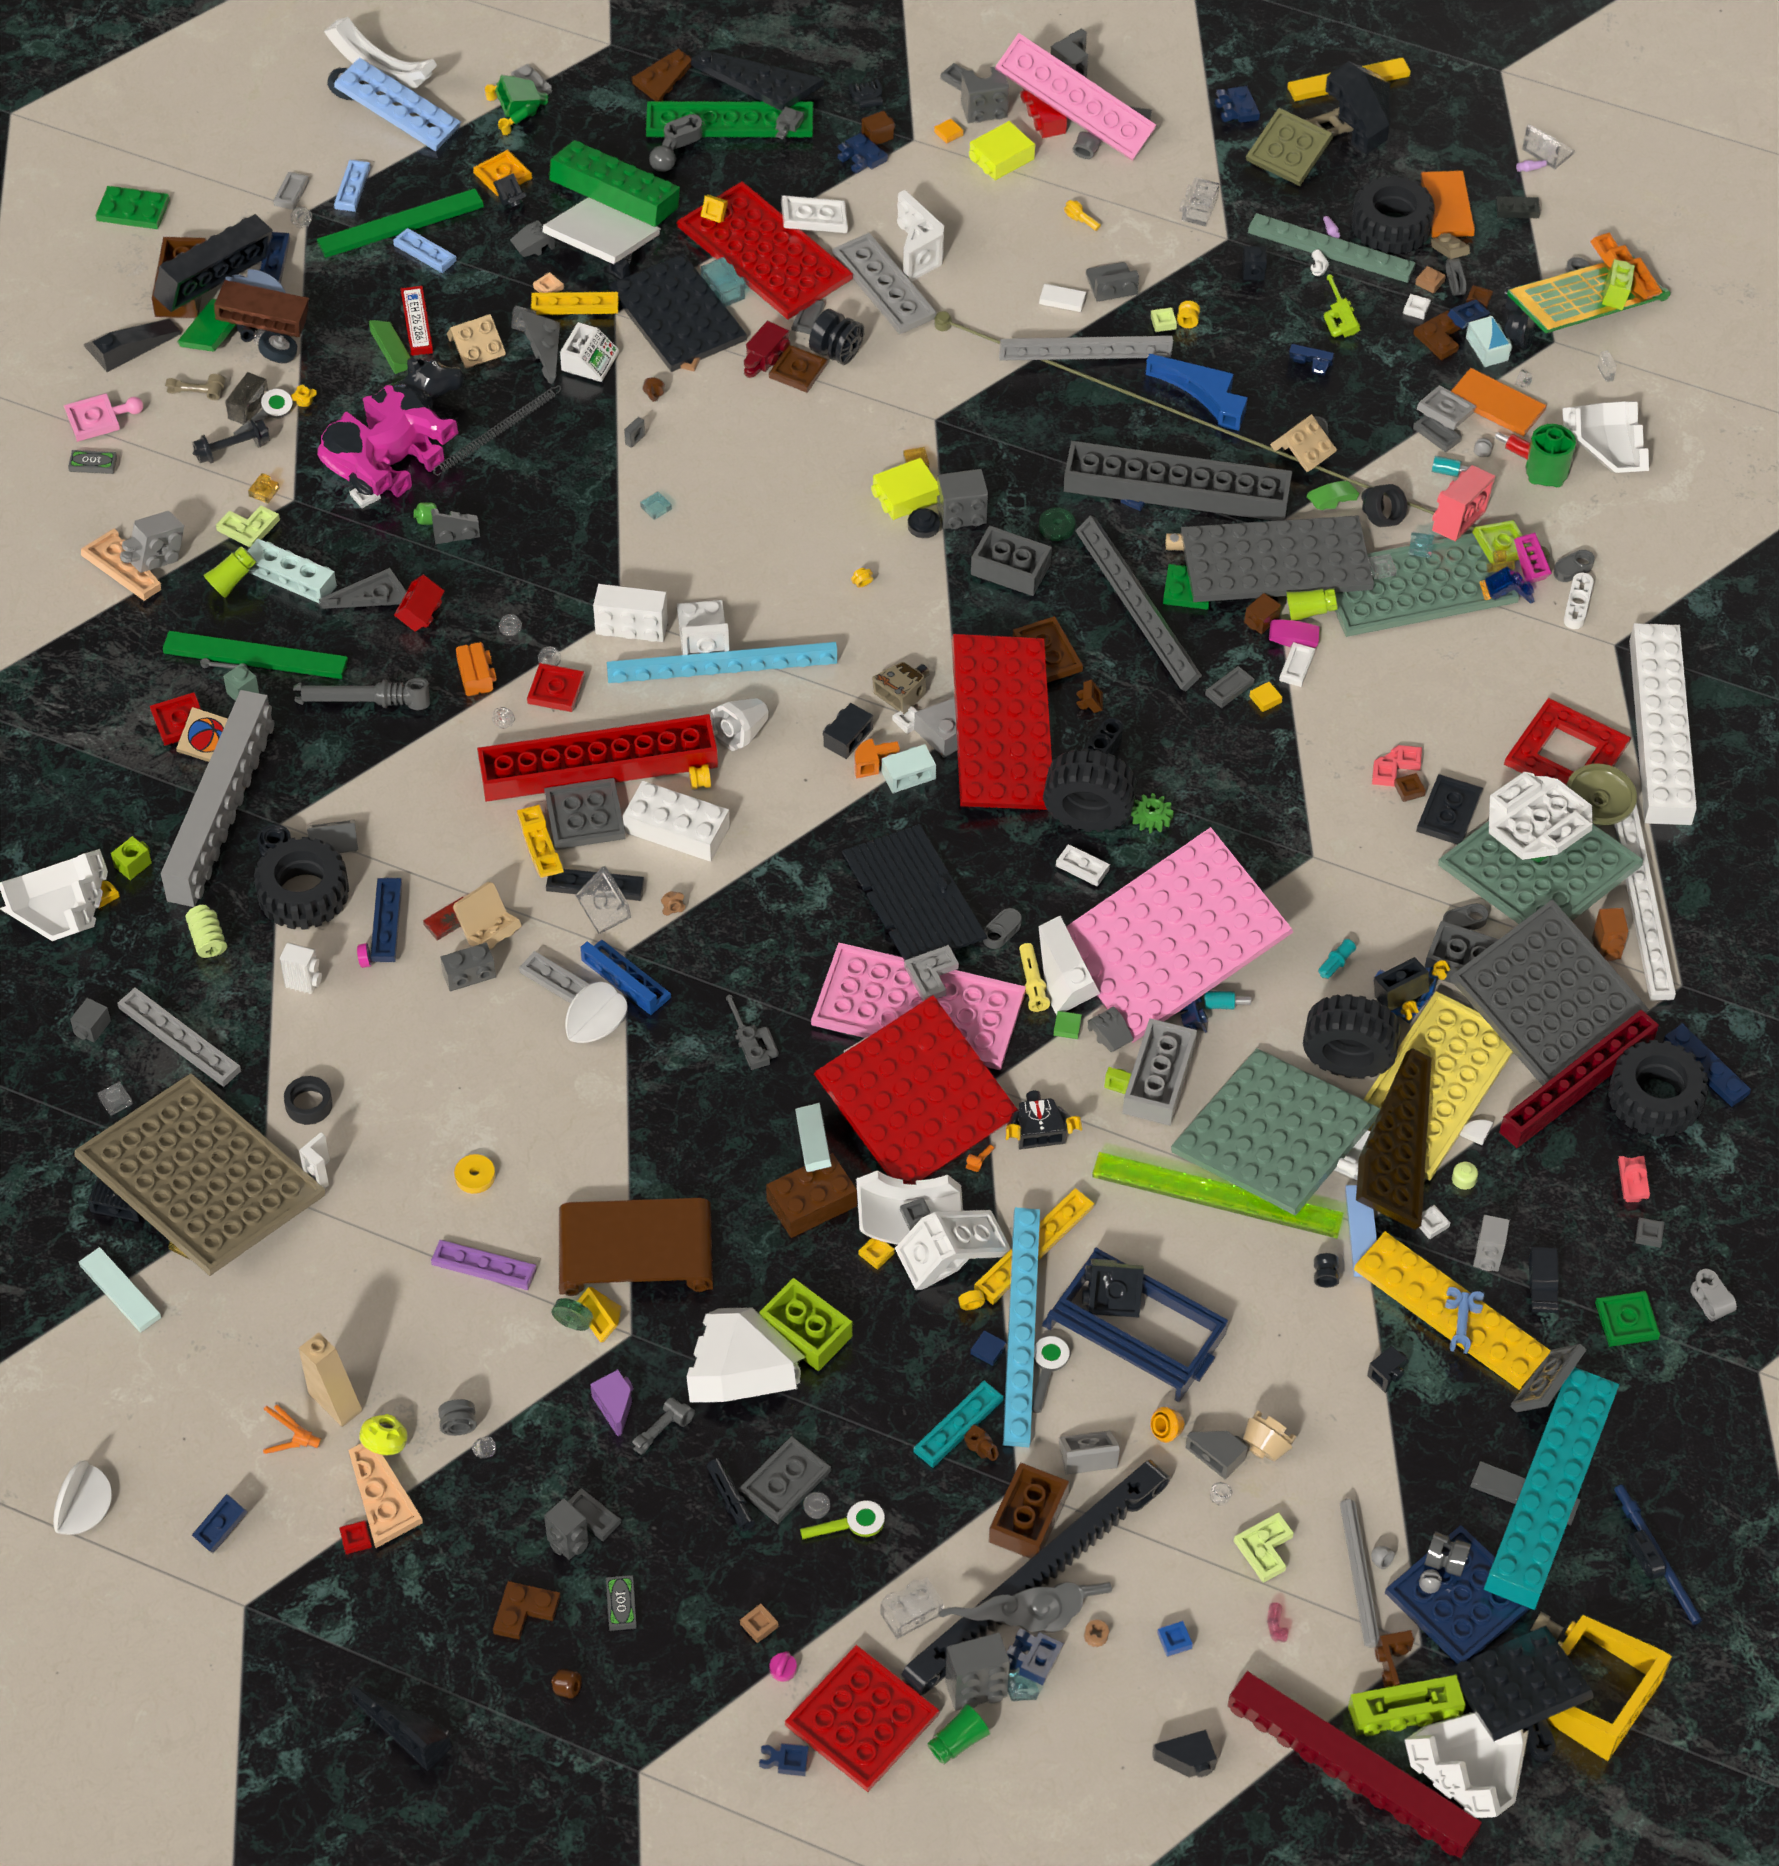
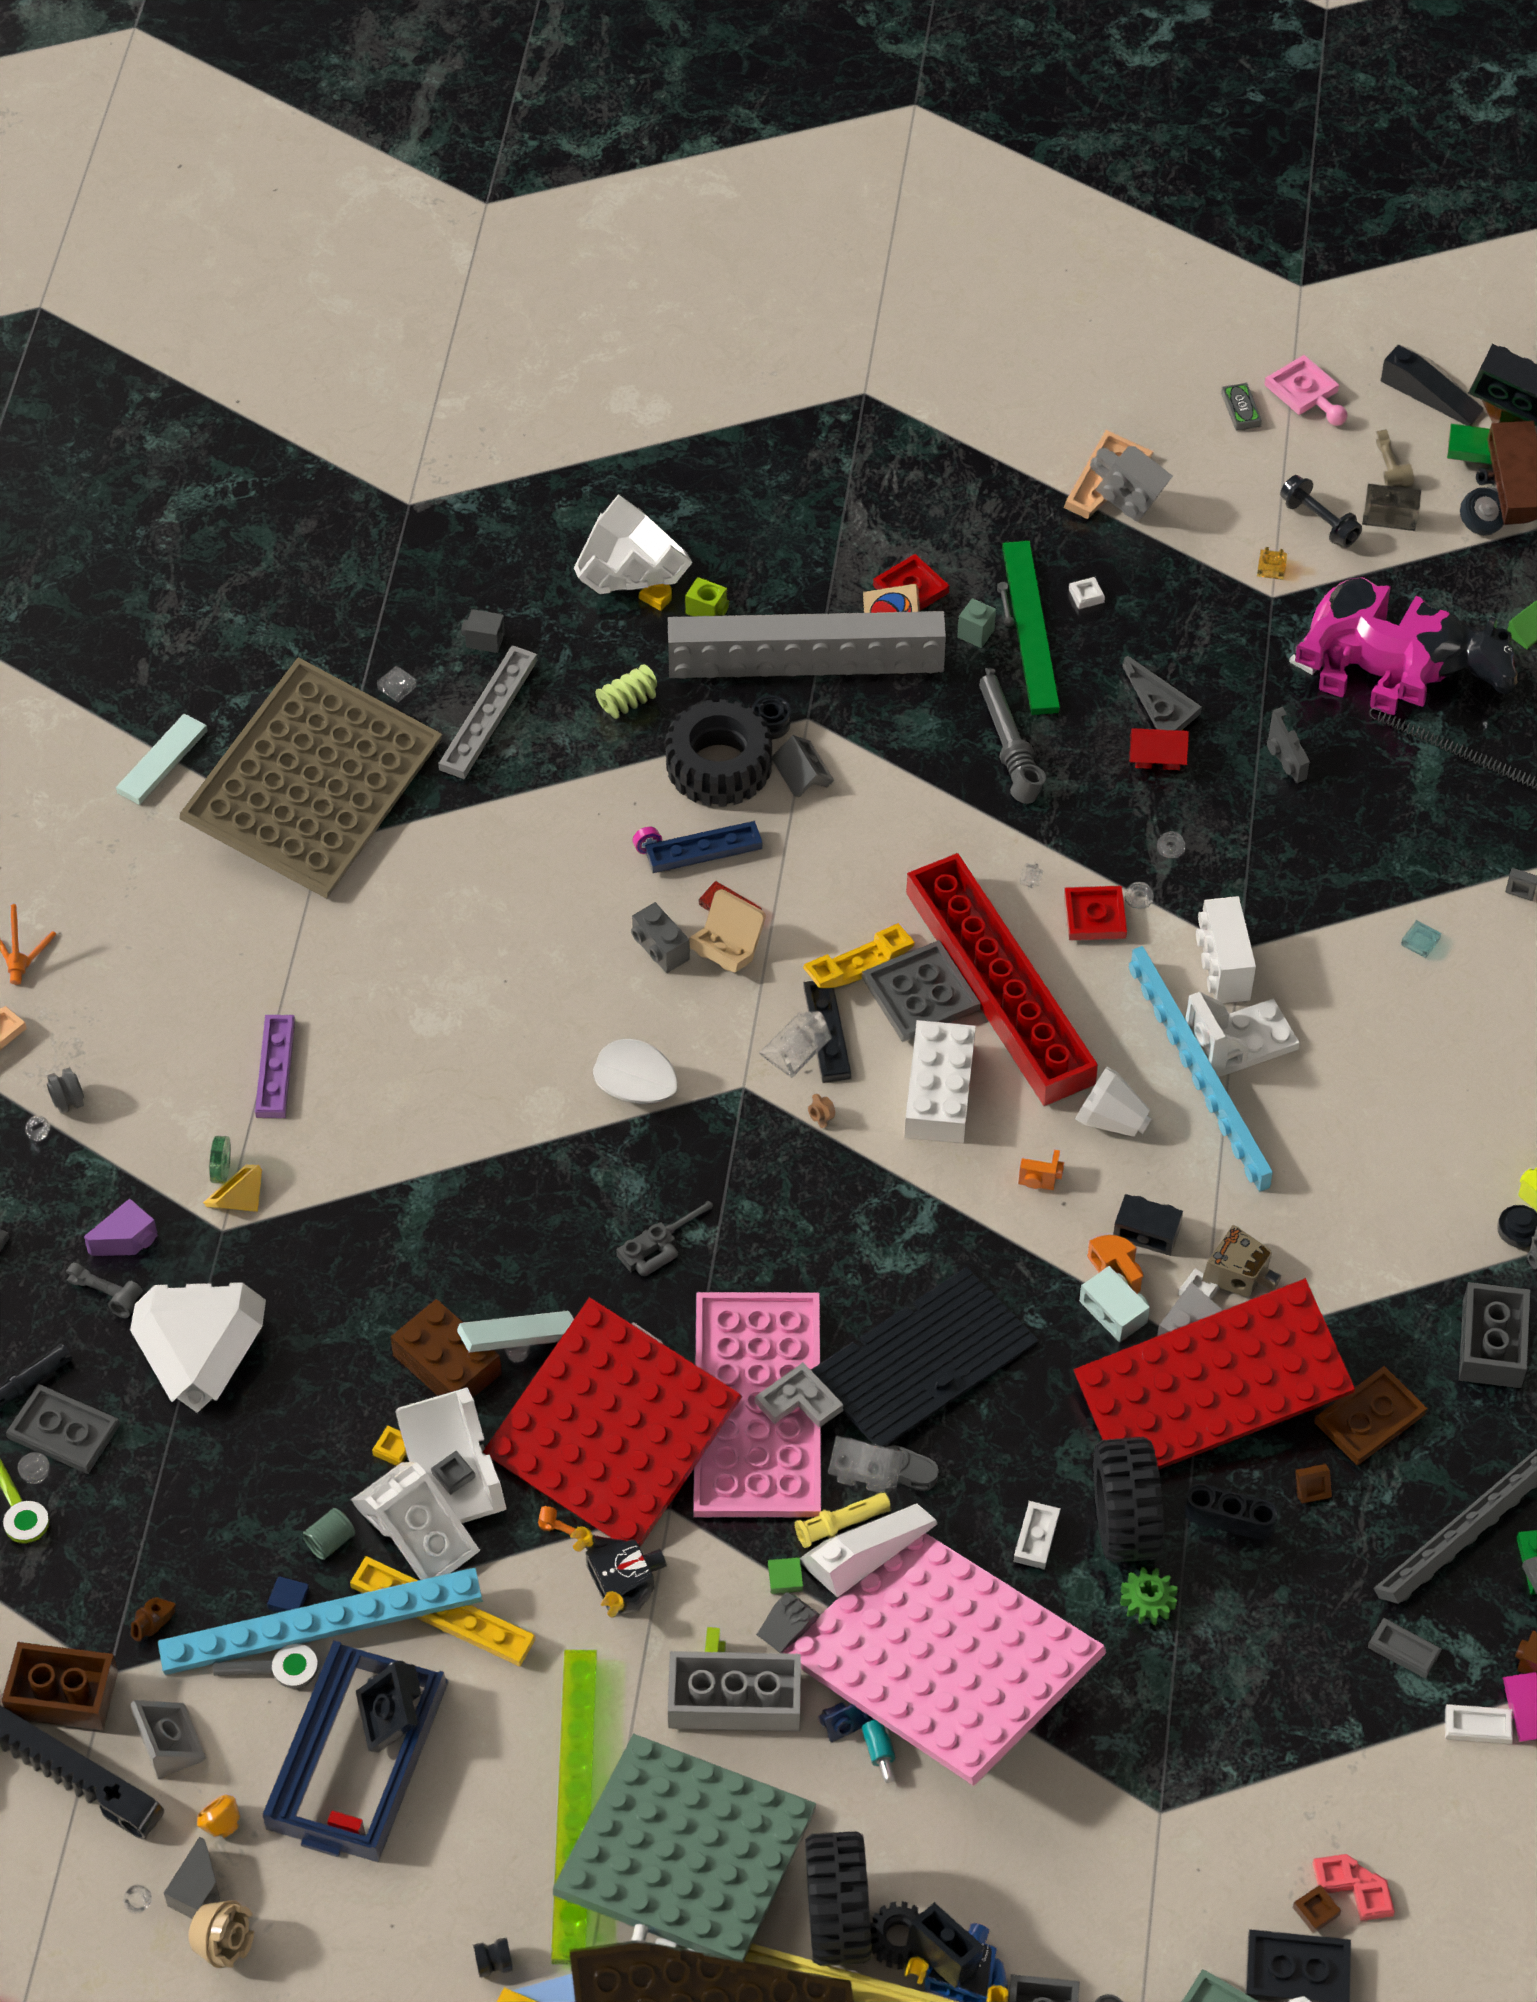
camera: 75 degrees right, 0 degrees up
(230, 571) = (1122, 562): lime plant -> none
(237, 611) = (1086, 593): none -> white tile
(248, 530) = (1203, 567): yellowish green plate -> none
(274, 403) = (1399, 537): piece -> none
(291, 571) = (1158, 619): light aqua brick -> none
(300, 968) = (601, 782): white brick -> none
(303, 396) = (1426, 558): yellow plate -> none
(306, 1084) = (440, 829): black tyre -> none
(314, 1158) = (350, 867): white panel -> none
(328, 1380) = (68, 953): tan slope -> none
(383, 1440) = (25, 1042): neon yellow piece -> none
(423, 513) = (1302, 719): bright green piece -> none
(474, 669) = (1088, 827): orange brick -> none
(477, 1183) = (391, 1035): yellow piece -> none
(552, 976) = (677, 1022): light grey plate -> none
(622, 979) = (695, 1085): blue fence -> none
(635, 1242) = (332, 1202): reddish brown windscreen -> none
(699, 777) = (1016, 1089): yellow wheel -> none
(781, 780) = (1041, 1174): none -> orange bracket
(808, 1323) = (262, 1391): lime brick -> none
(862, 577) = (1399, 1180): yellow plate -> none
(945, 1306) = (328, 1533): none -> sand green piece
(957, 1423) = (171, 1585): teal tile -> none
(971, 1300) = (345, 1560): yellow tile -> none
(998, 946) = (866, 1463): none -> clear brick
(1198, 1341) = (346, 1822): none -> red tile
(1258, 1546) = (73, 1958): yellowish green plate -> none
(1265, 696) = (1405, 1695): yellow tile -> none
(1337, 958) = (993, 1873): teal axle -> none

